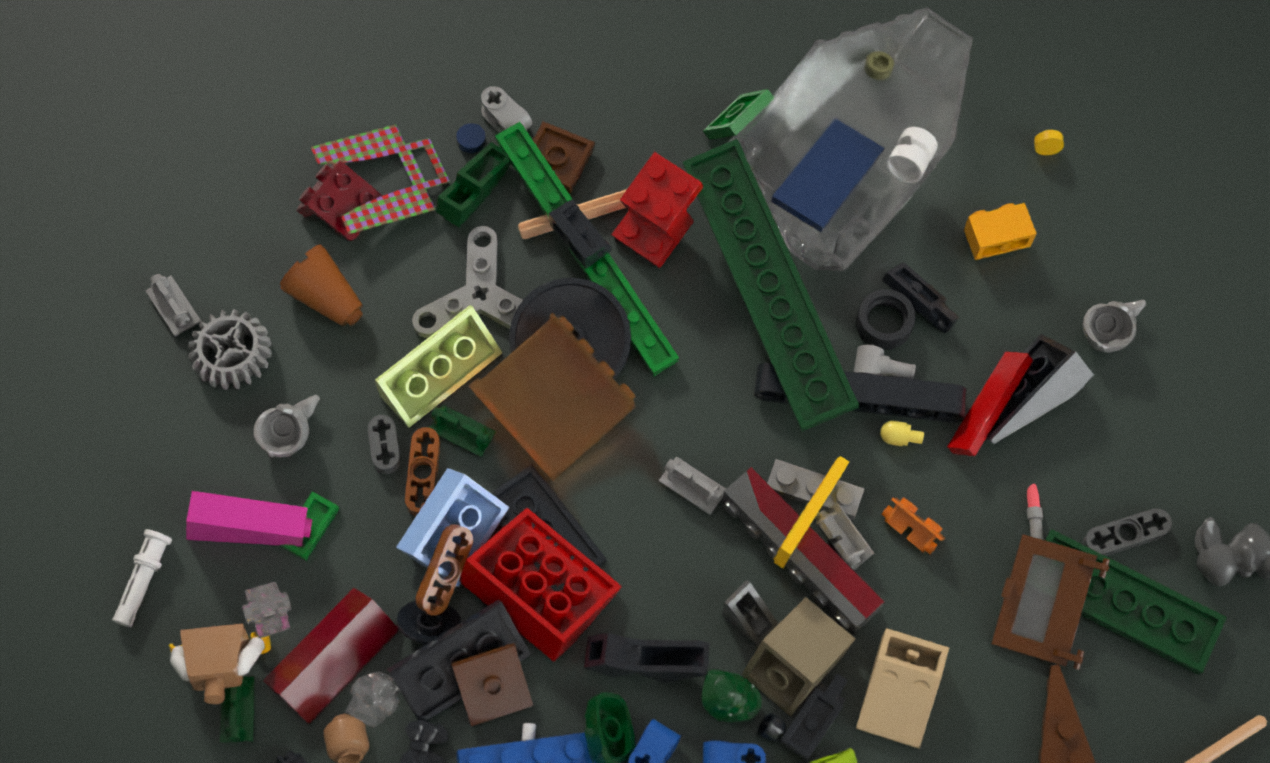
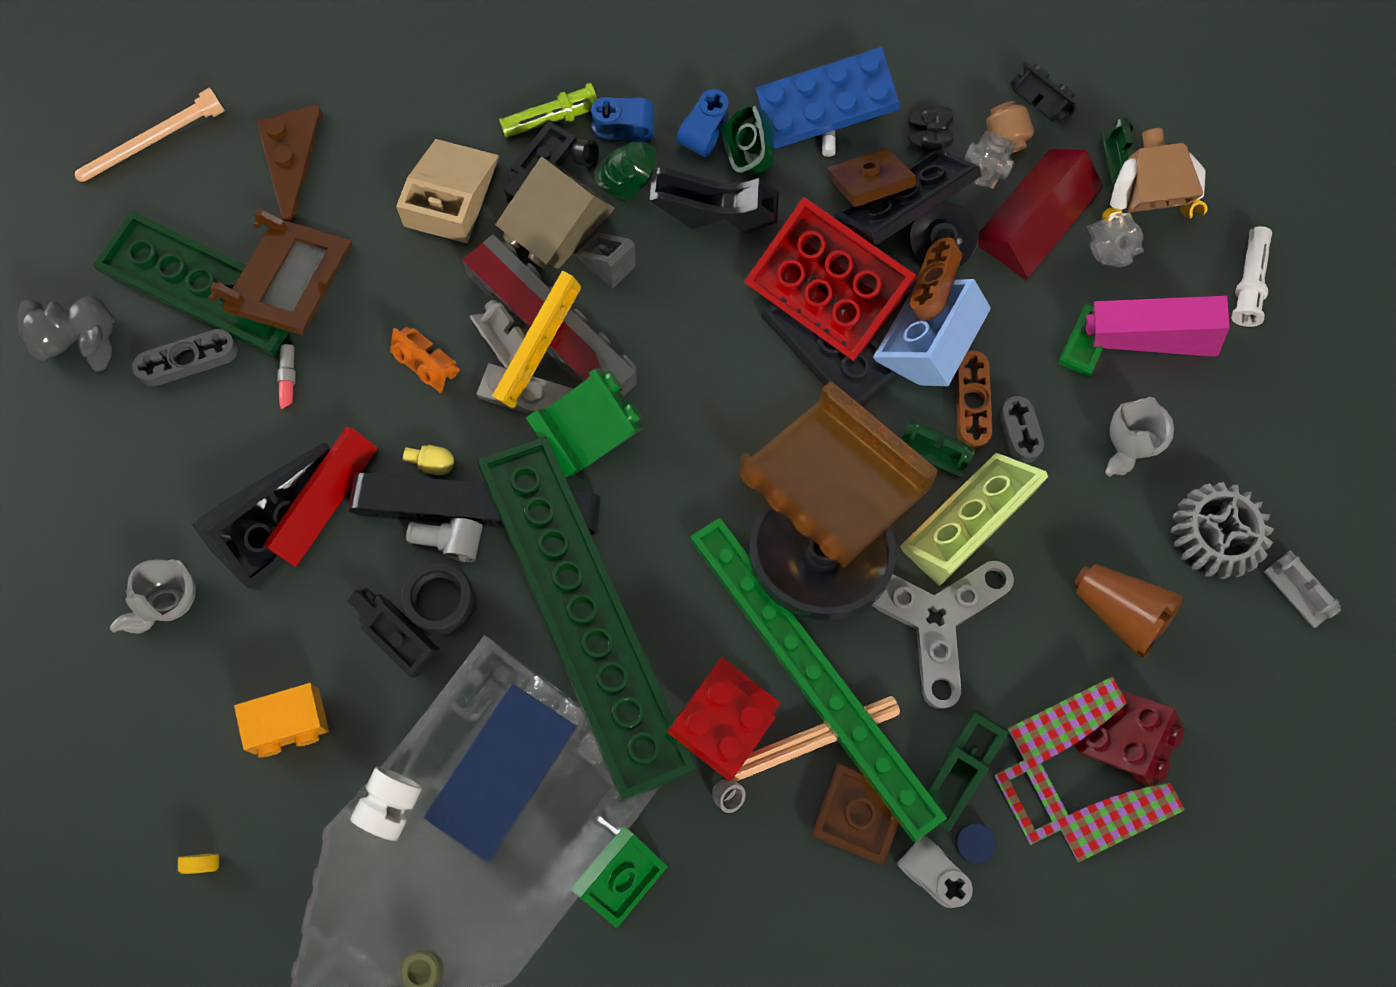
camera: 175 degrees right, 5 degrees up
(578, 234) = (822, 675): black hinge -> none
(692, 485) = (669, 394): light grey hinge -> none
(770, 448) = (587, 422): none -> green panel

